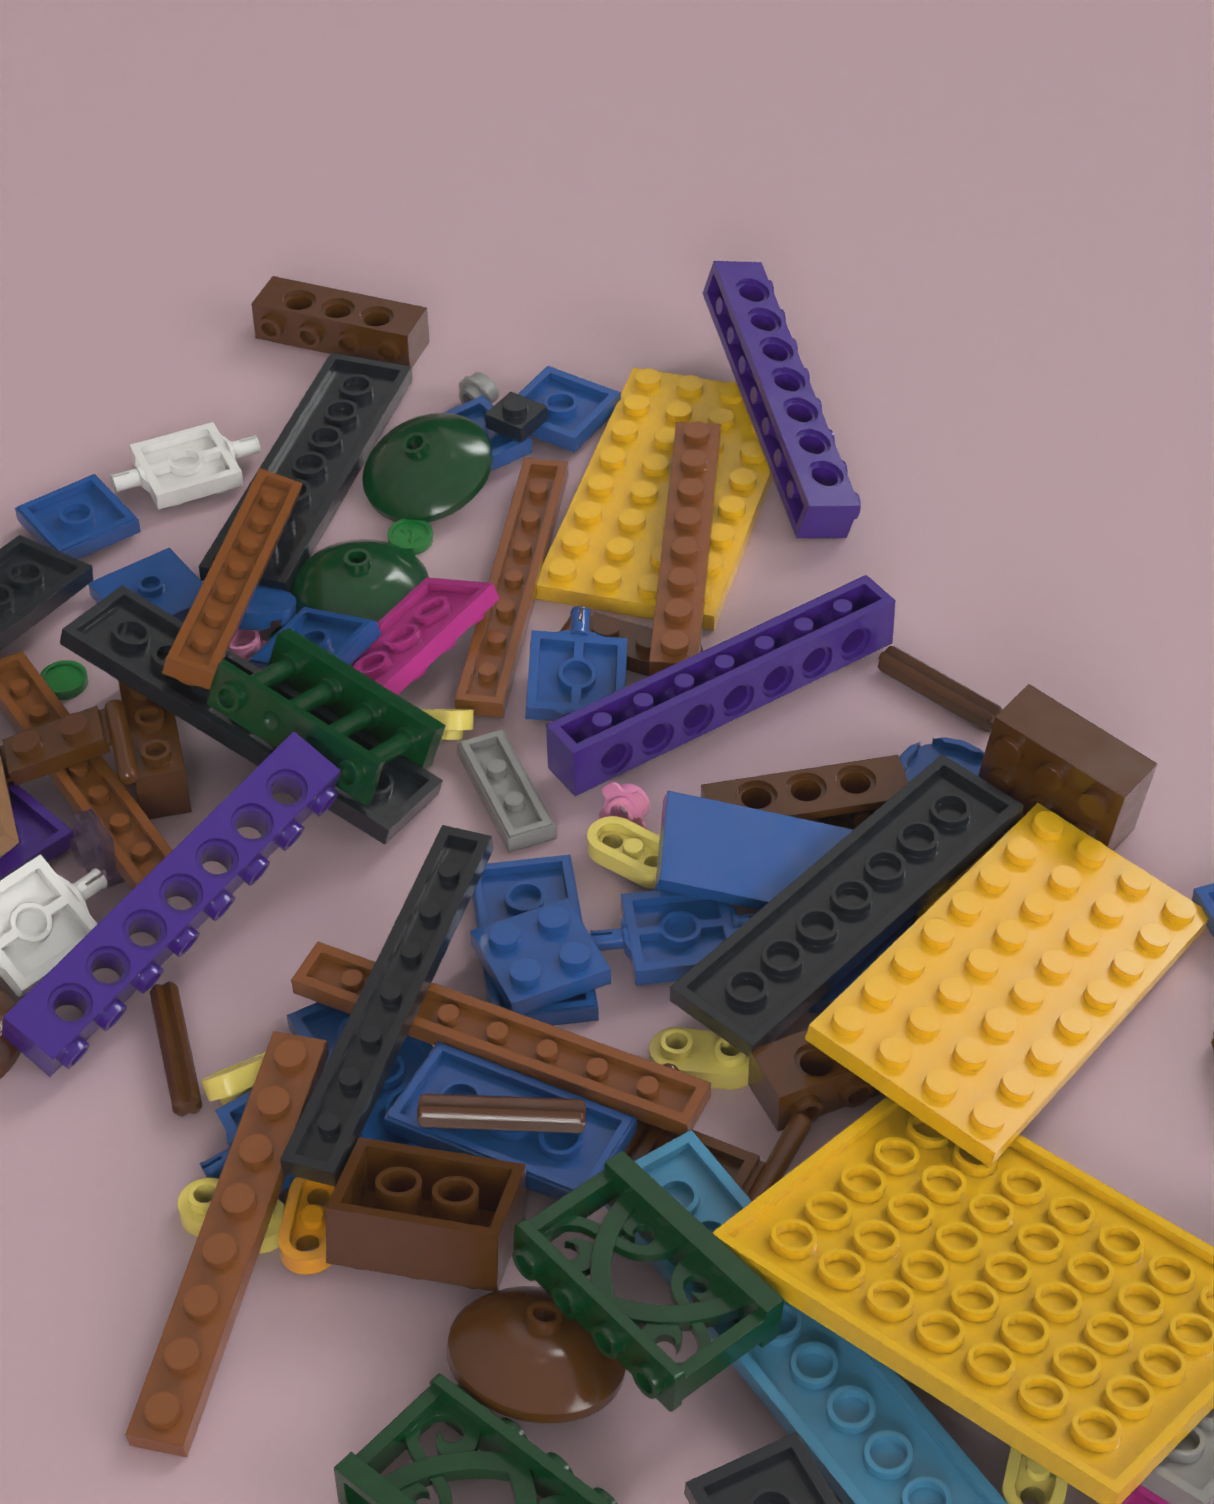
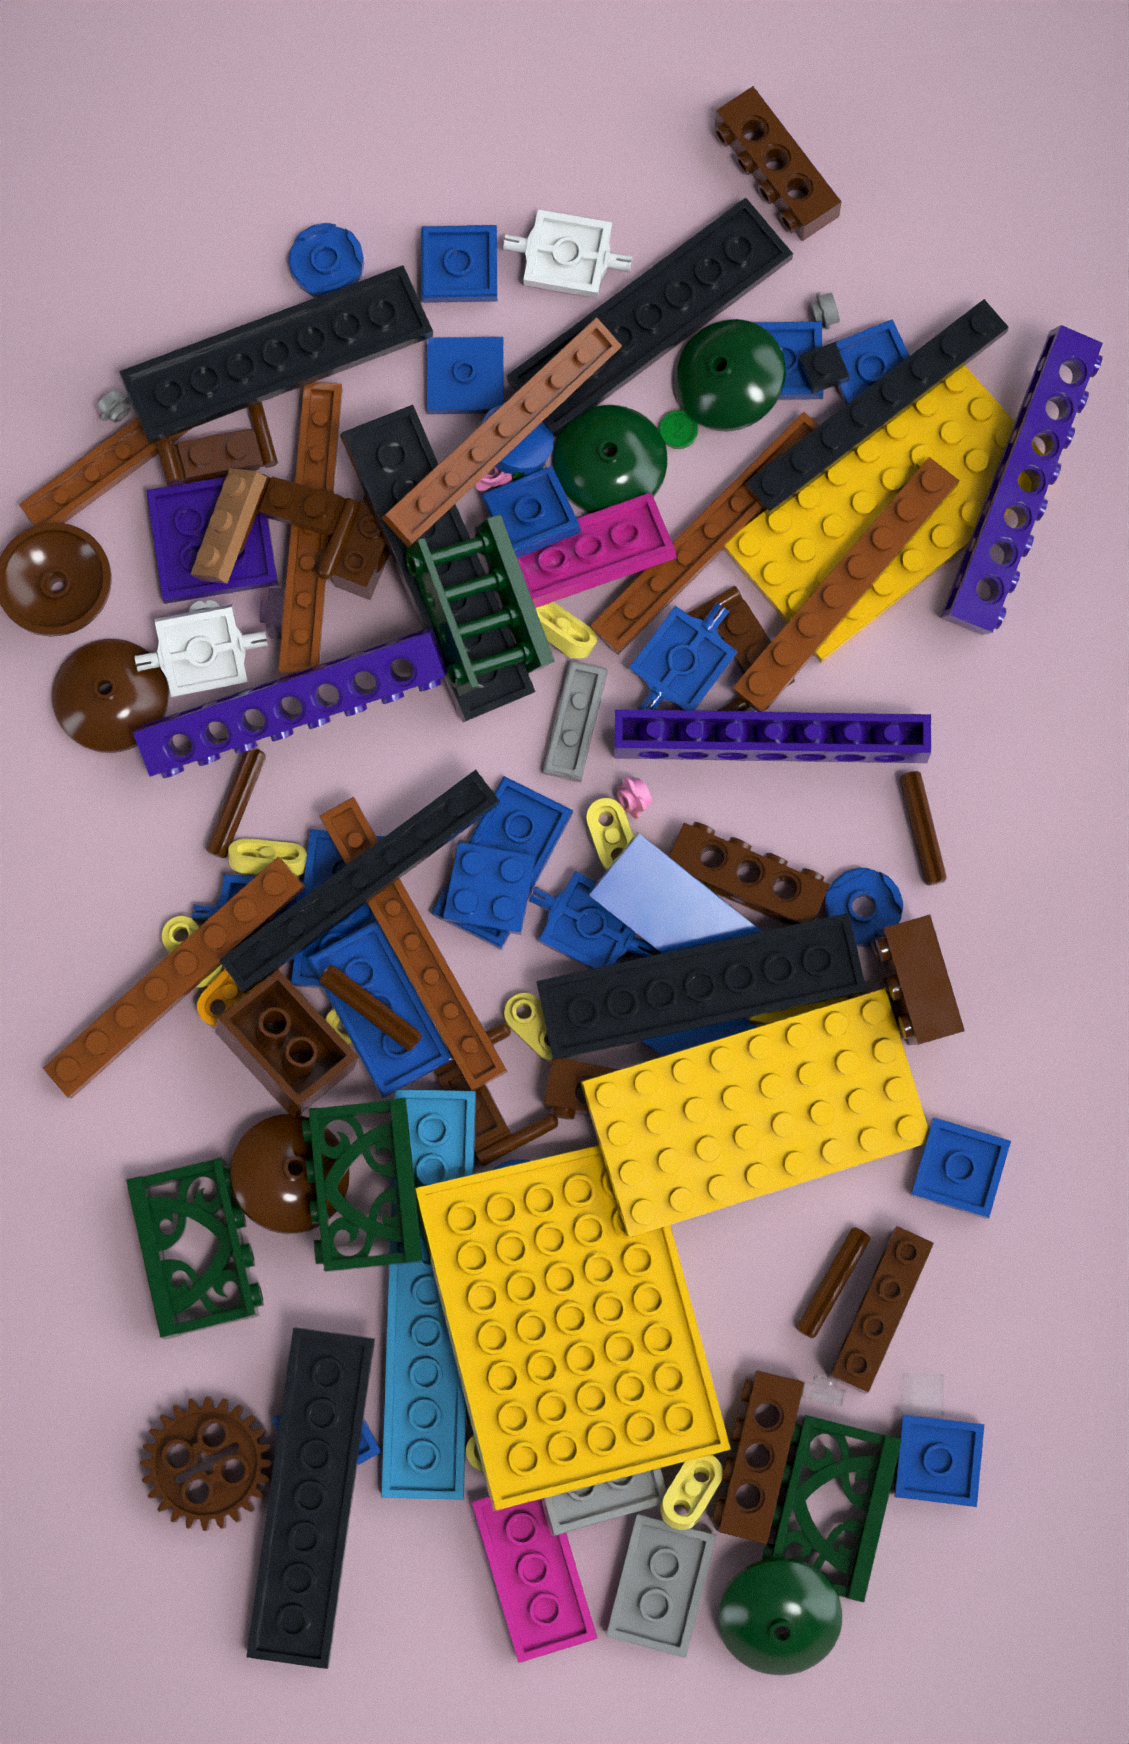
camera: 40 degrees right, 35 degrees up
(65, 678) = (358, 413): green piece -> none
(589, 424) = (876, 407): none -> black plate

